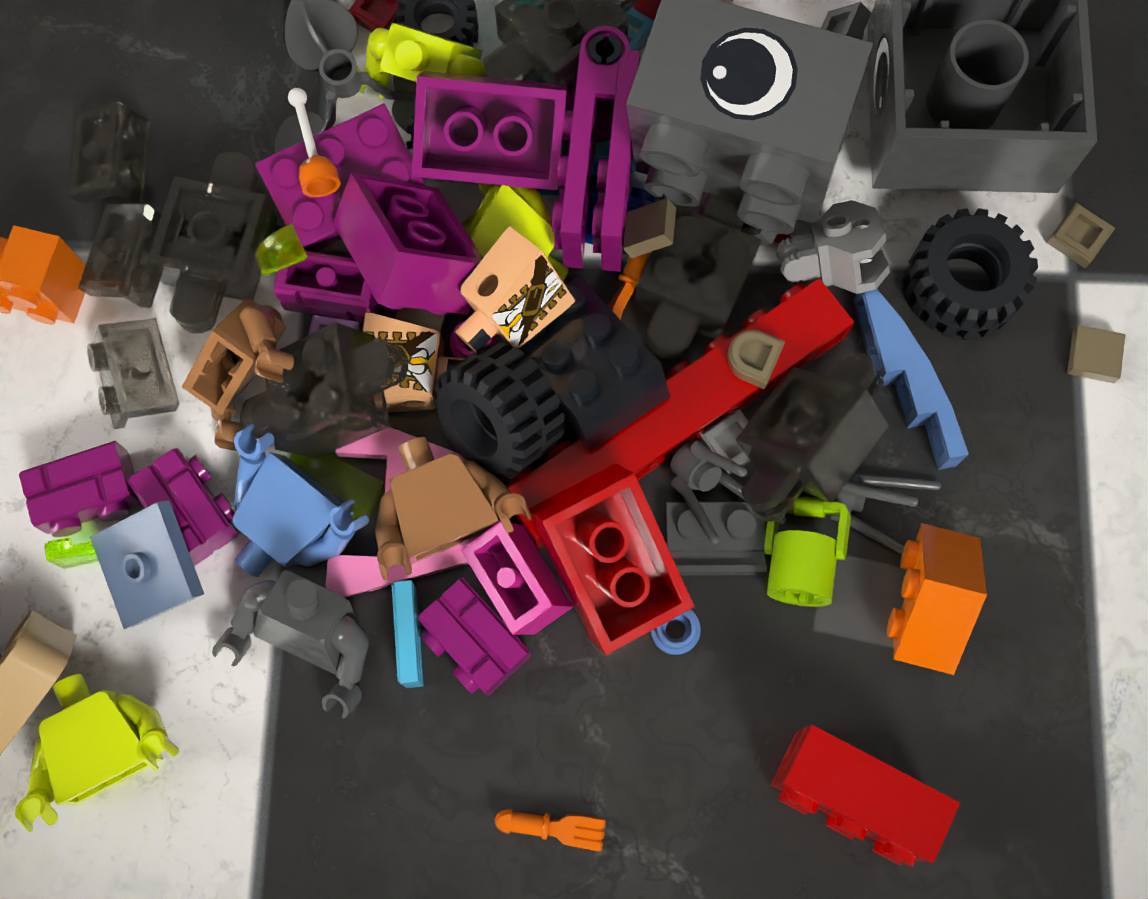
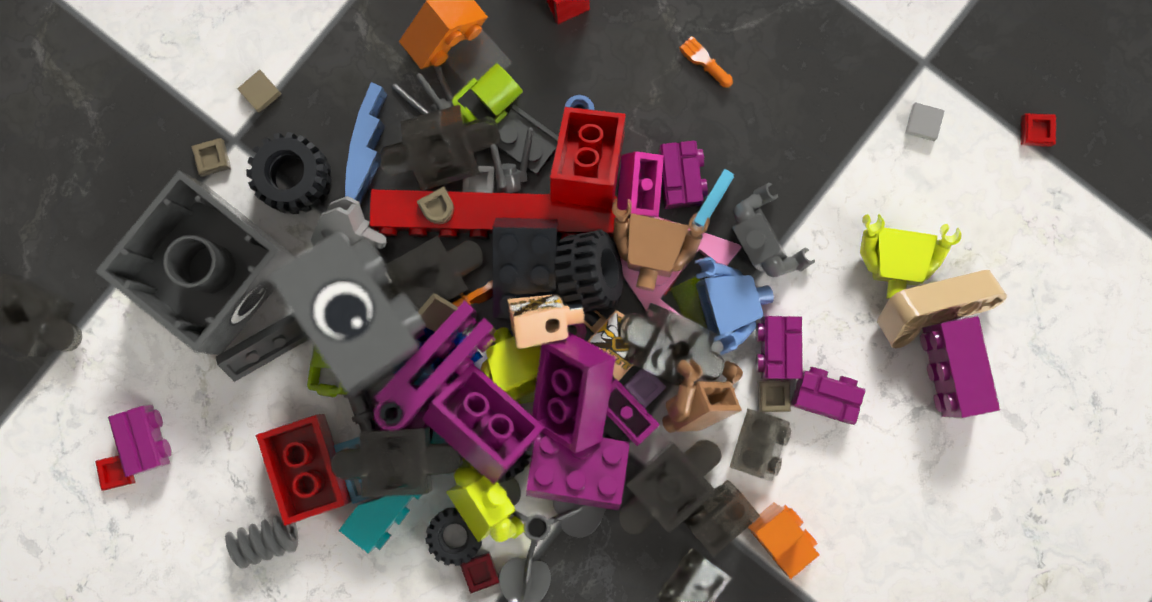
camera: 140 degrees left, 10 degrees up
(66, 555) = (849, 364): clear neon green tile -> none
(146, 564) = (819, 326): sand blue plate -> none
(153, 441) = (774, 396): none -> dark tan tile
(280, 250) = (643, 439): clear neon green tile -> none
(318, 173) = (592, 470): orange hinge -> none

